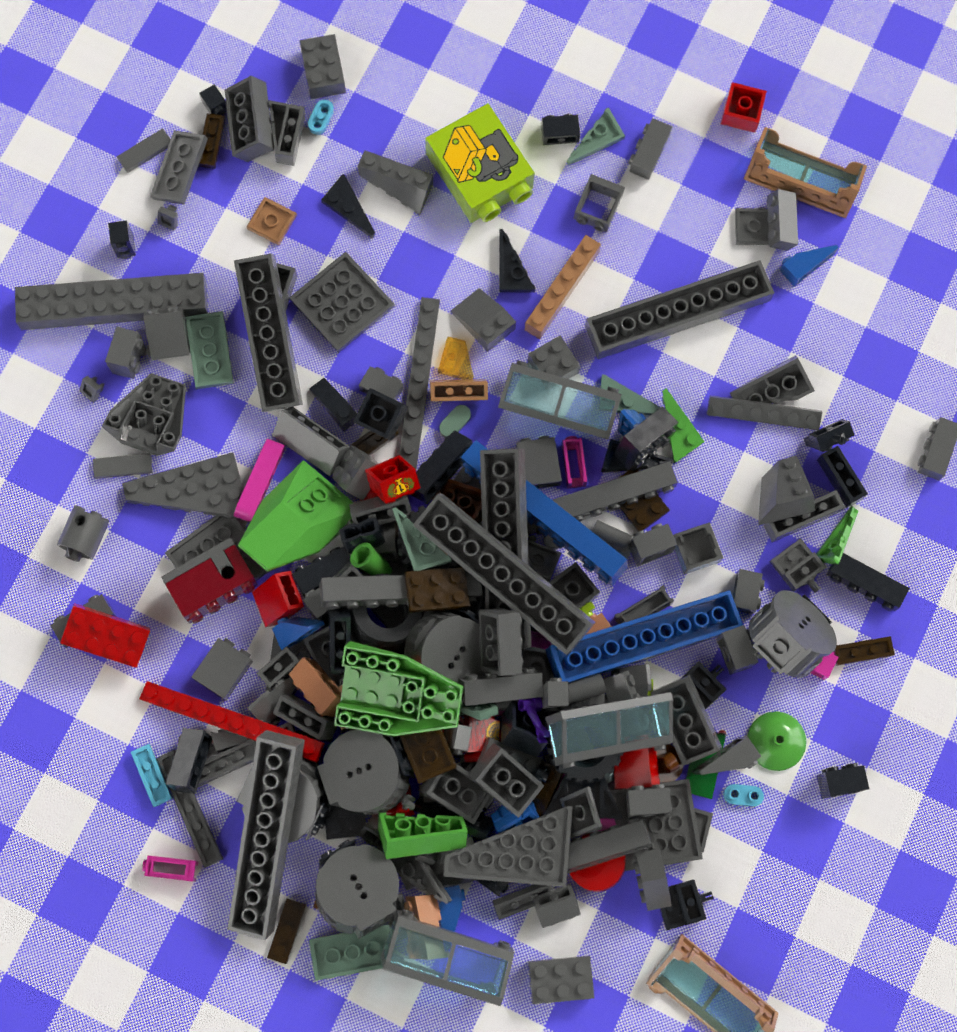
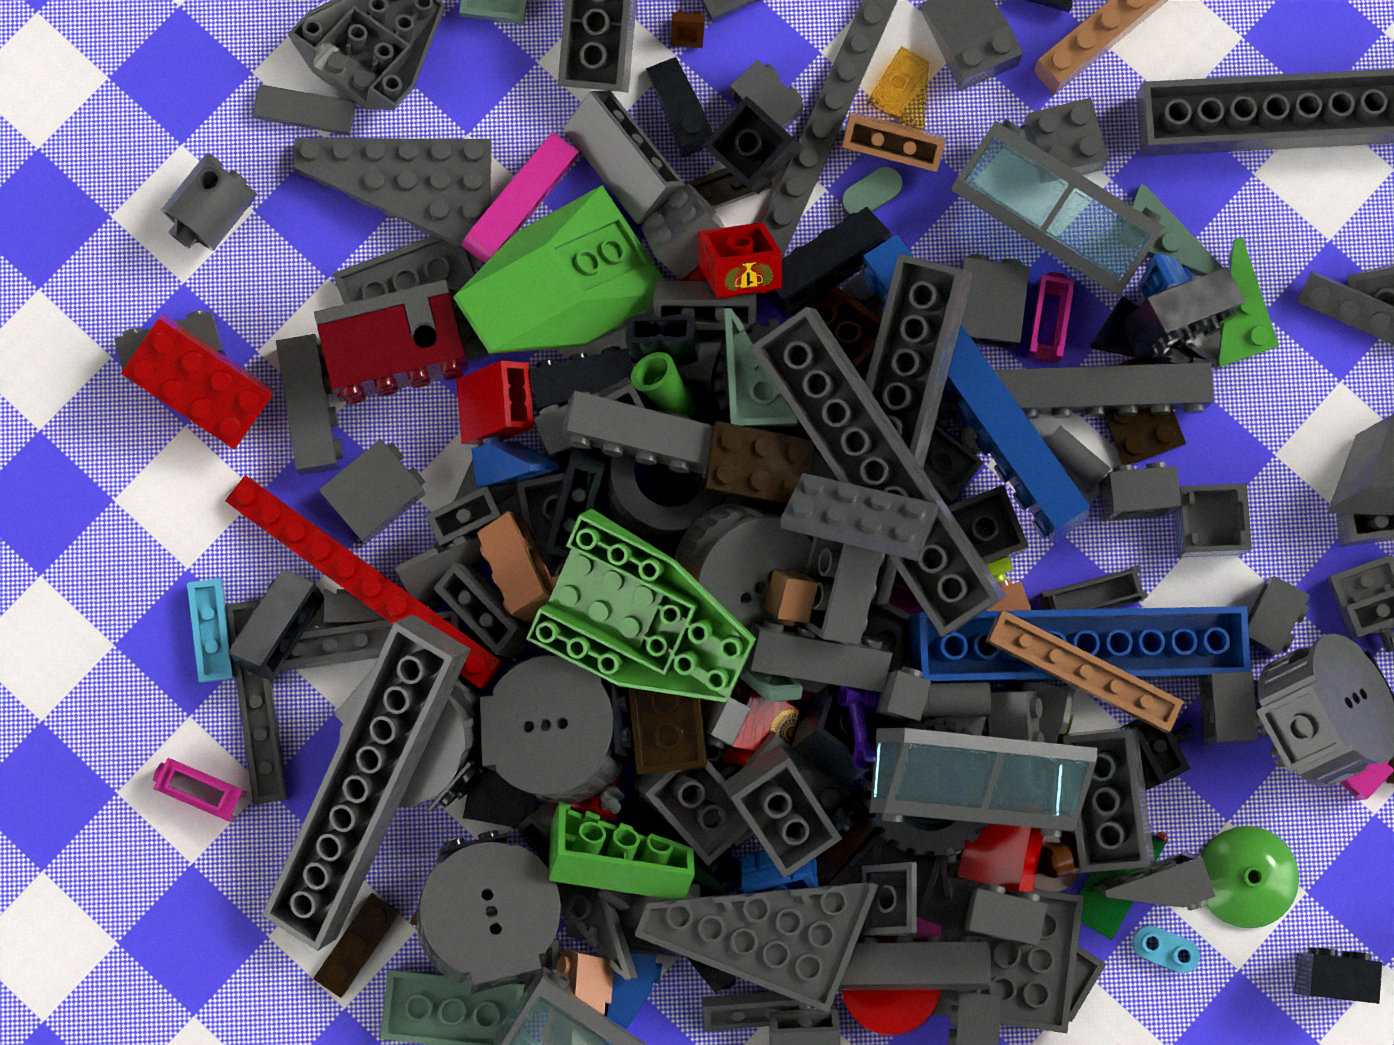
camera: 15 degrees right, 5 degrees up
(171, 630) = (308, 405): none -> dark grey brick
(326, 360) = (687, 29): none -> reddish brown tile
(476, 658) = (790, 597): none -> medium nougat brick
(501, 601) = (859, 516): none -> dark grey plate
(651, 652) = (1084, 671): none -> medium nougat plate

